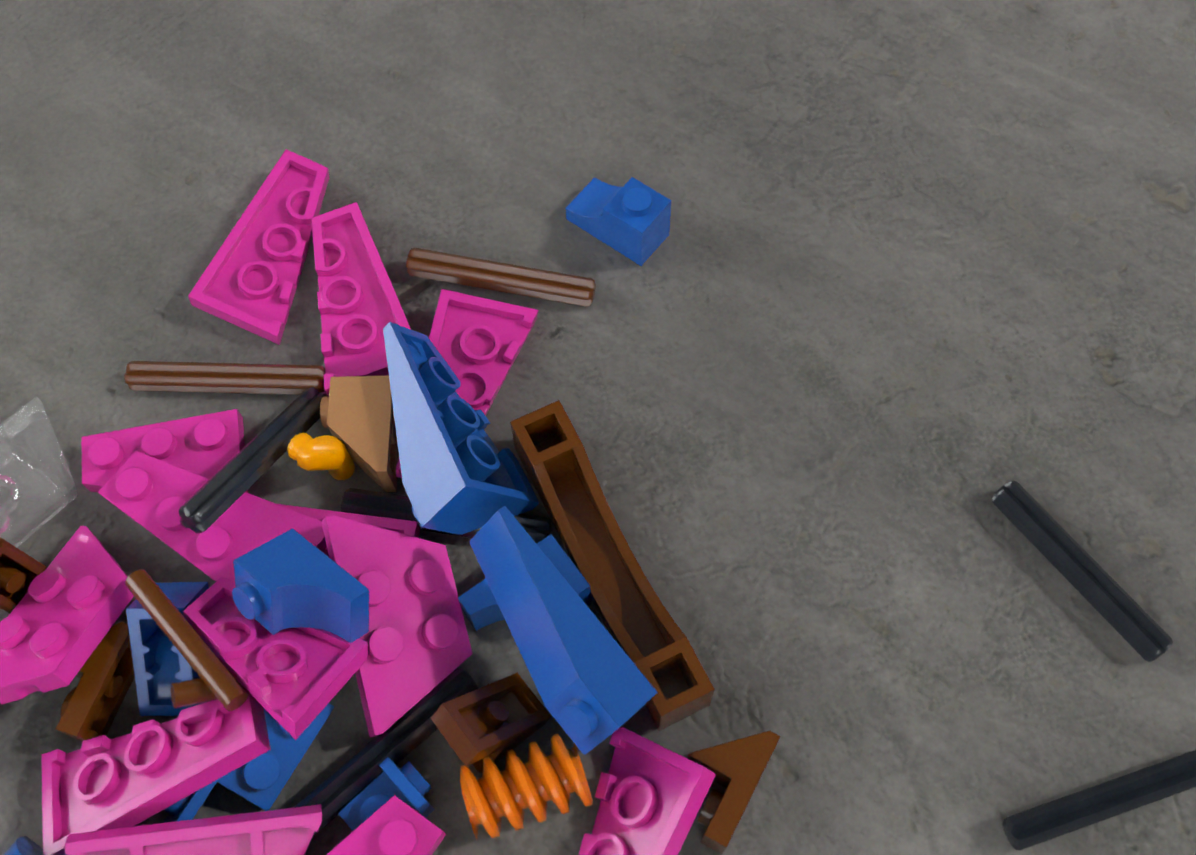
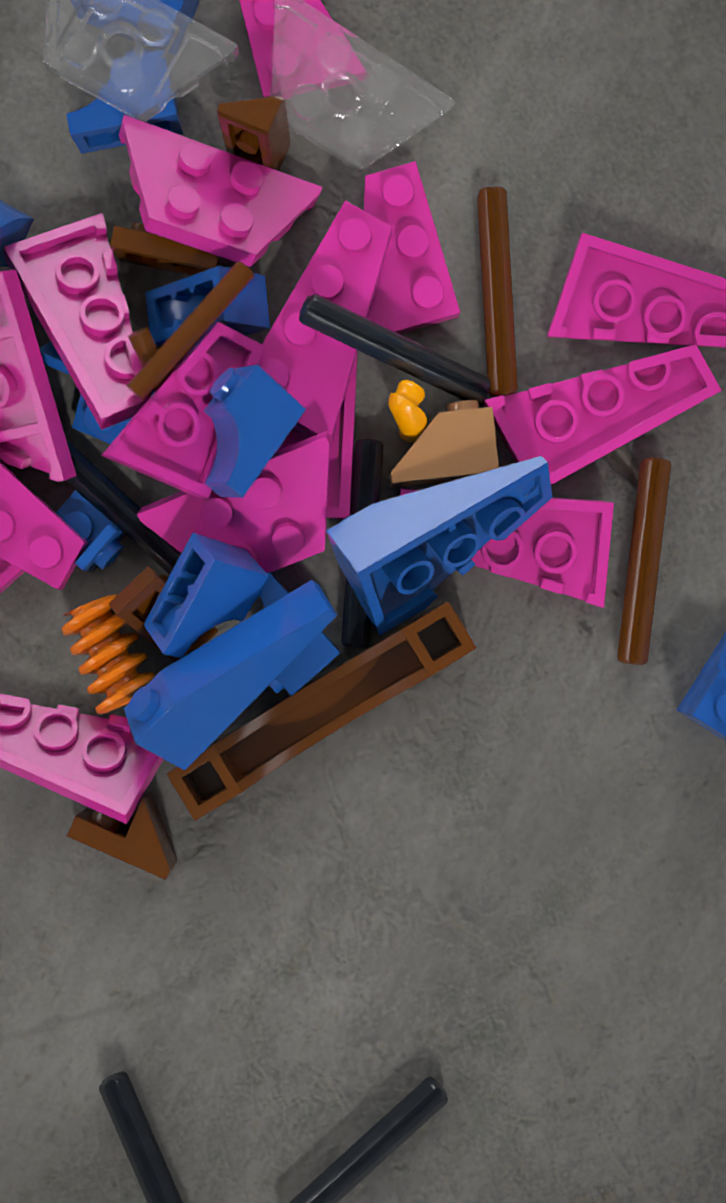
camera: 85 degrees right, 25 degrees up
(468, 661) = (205, 588): none -> blue arch

